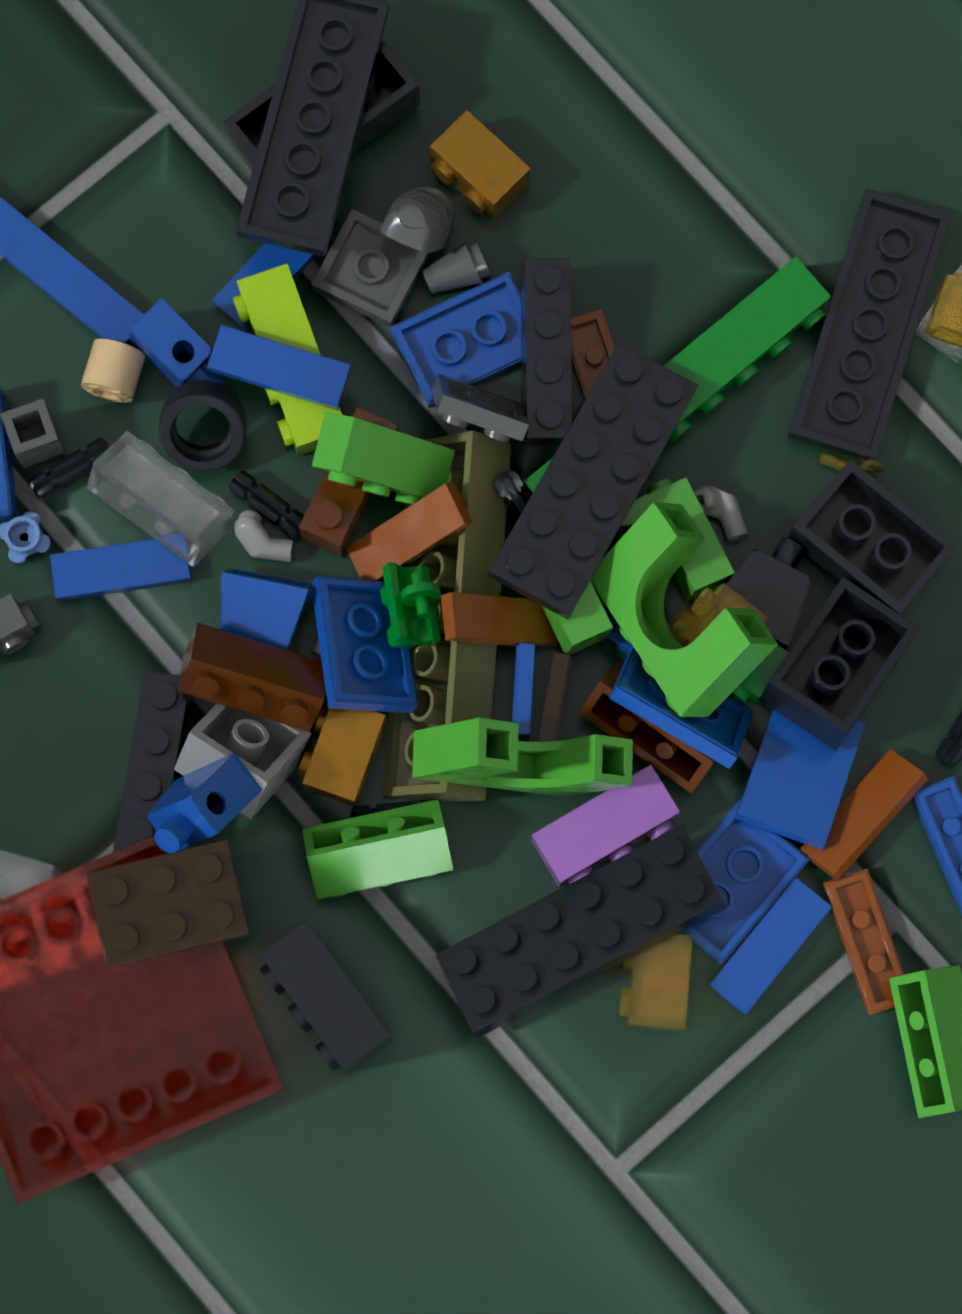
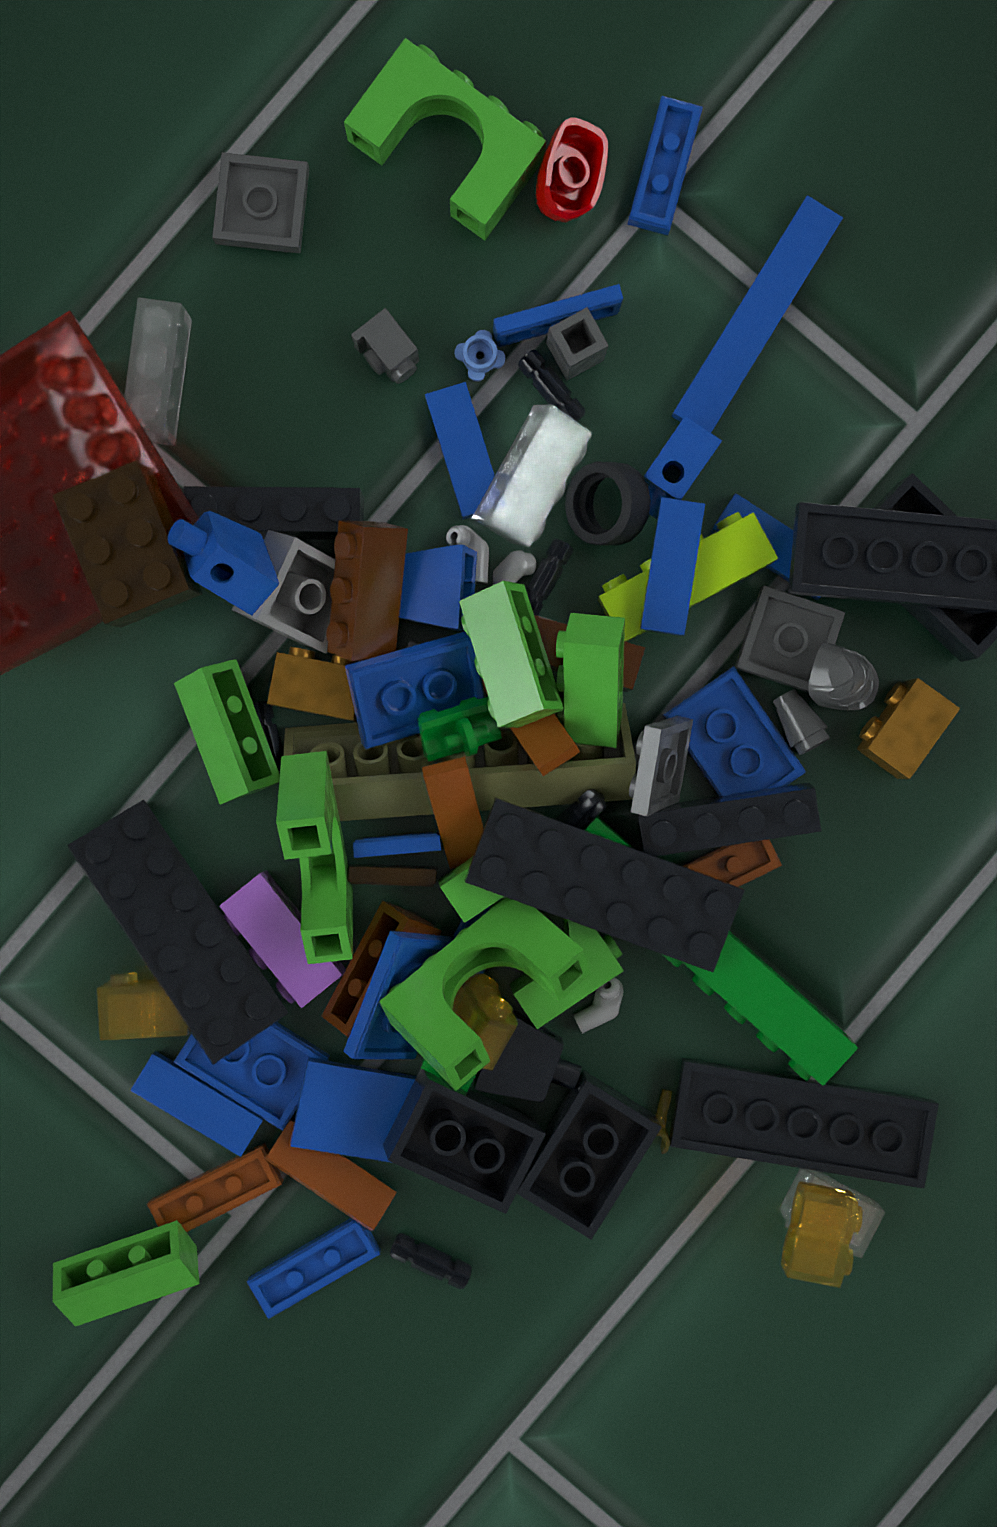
camera: 80 degrees right, 10 degrees up
(113, 370) = (650, 410): tan piece -> none
(210, 580) = (466, 536): none -> light grey arm
(324, 999) = (77, 706): black brick -> none
(344, 537) = (510, 655): none -> bright green brick

